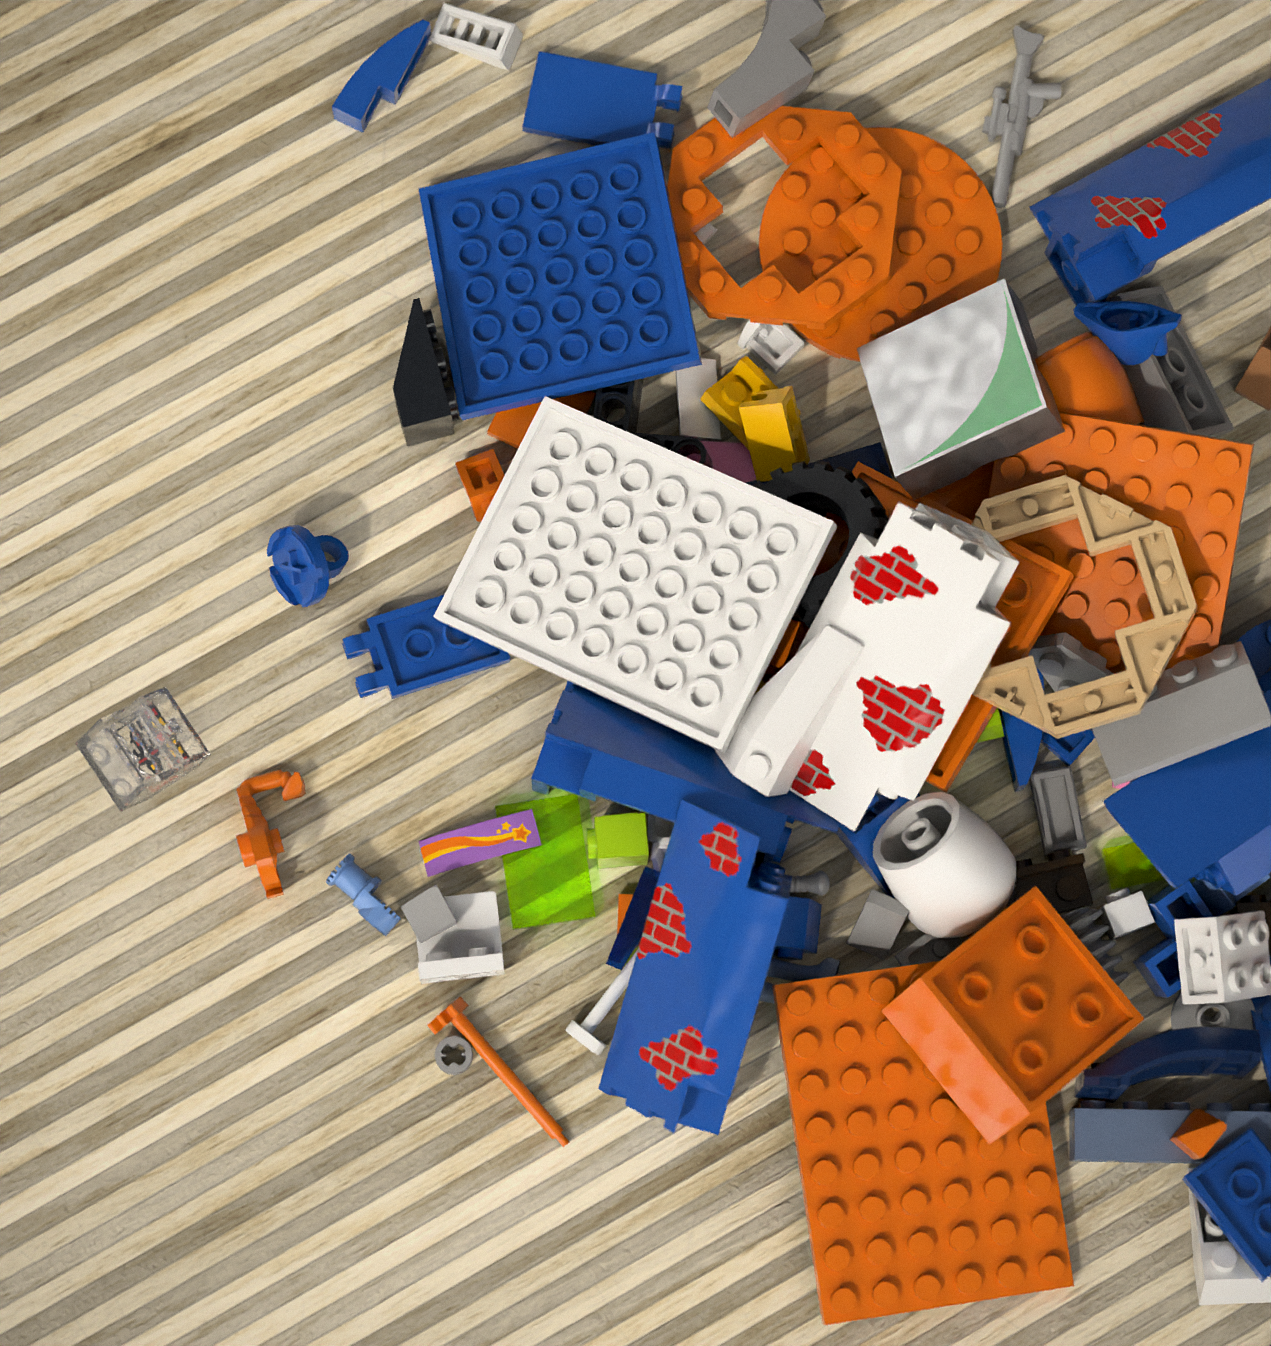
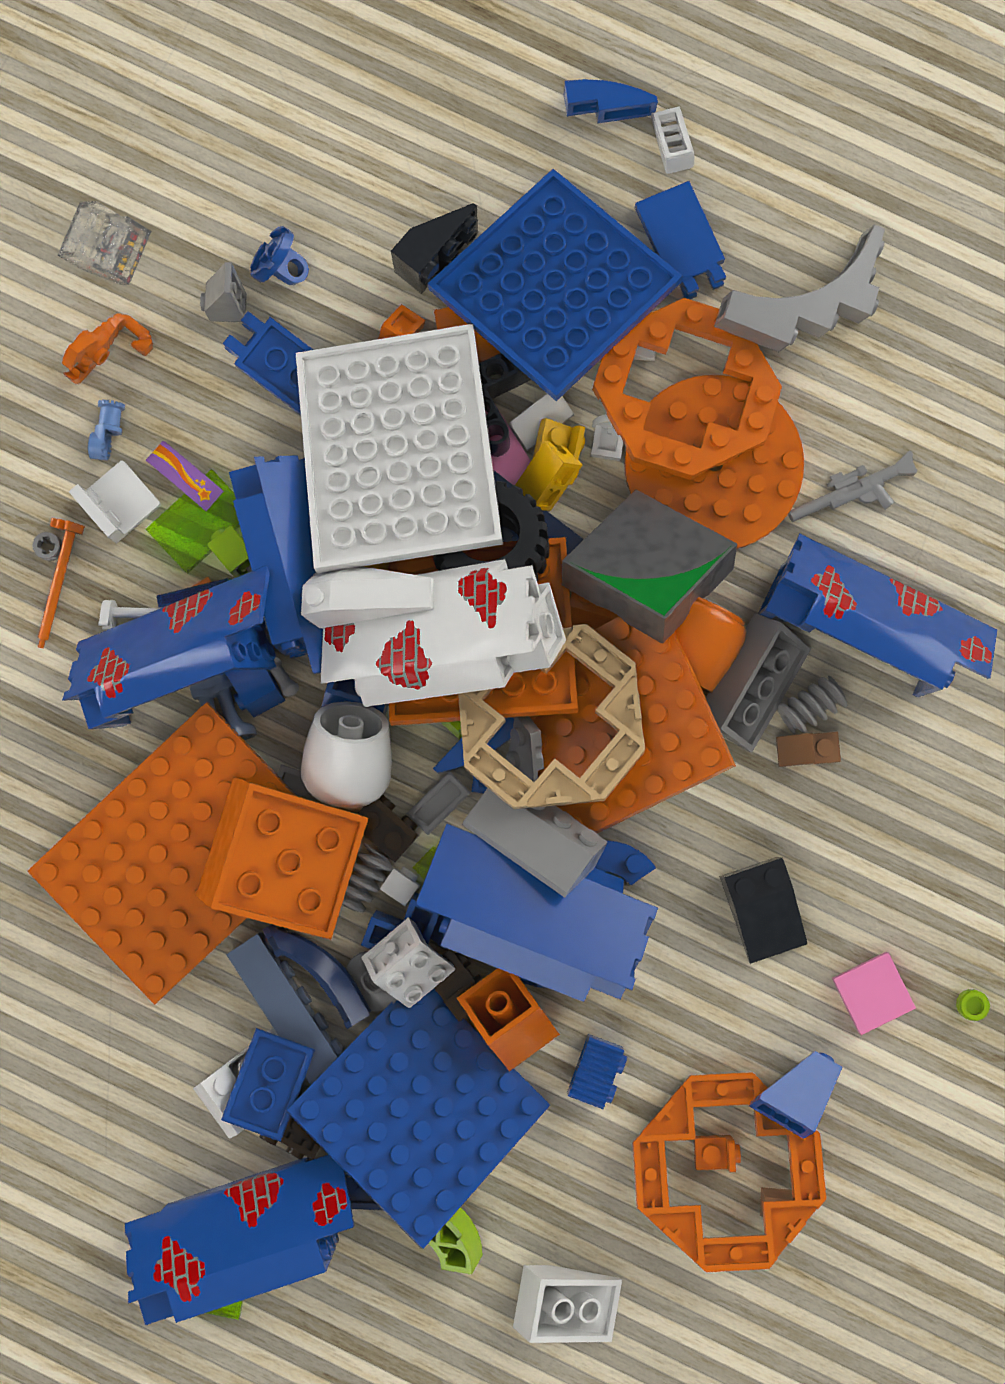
camera: 60 degrees right, 5 degrees up
(310, 652) = (224, 296): none -> light grey slope
(429, 914) = (119, 474): light grey slope -> none
(878, 924) = (289, 740): light grey tile -> none
(1129, 328) = (761, 641): blue hat -> none
(1198, 1133) = (288, 1019): orange slope -> none
(1226, 326) = (812, 704): none -> light grey piece

